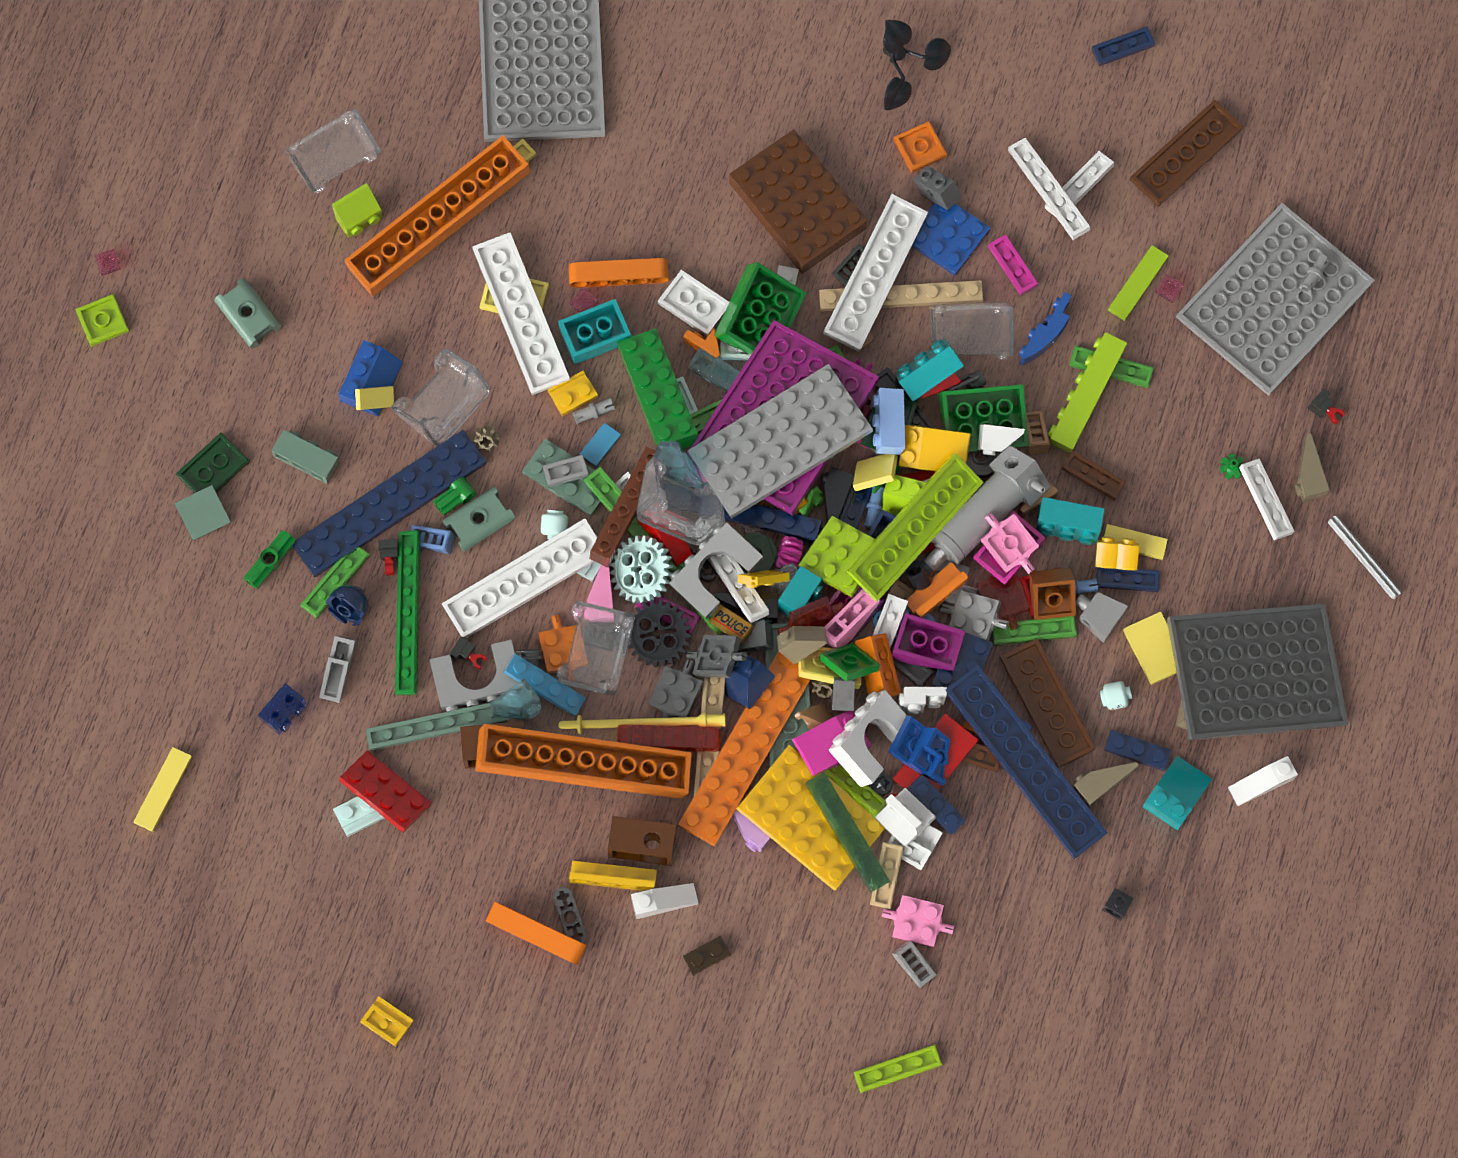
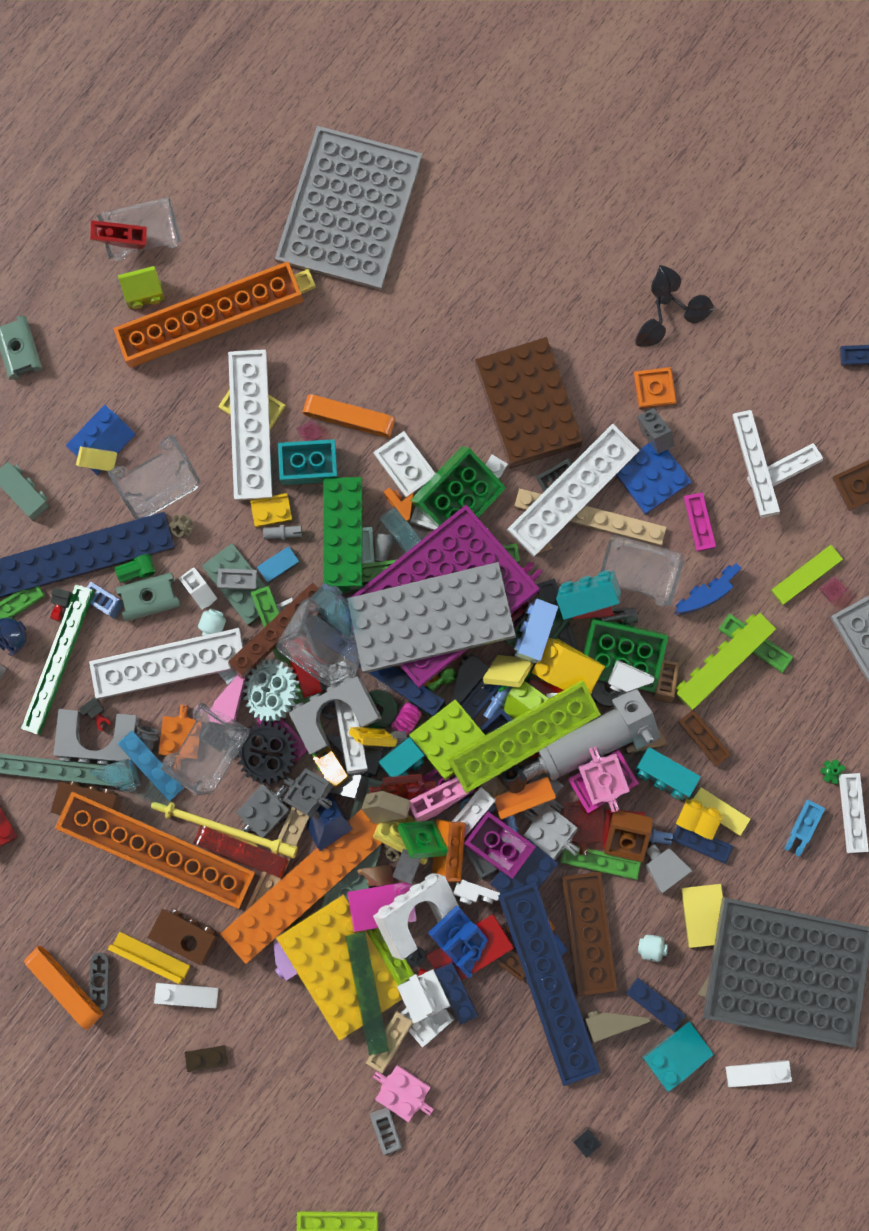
camera: 25 degrees right, 5 degrees up
(317, 163) = (118, 234): none -> red slope
(527, 494) = (198, 588): none -> white slope
(701, 392) = (382, 546): none -> light grey cone
(1223, 527) = (805, 825): none -> dark azure hinge

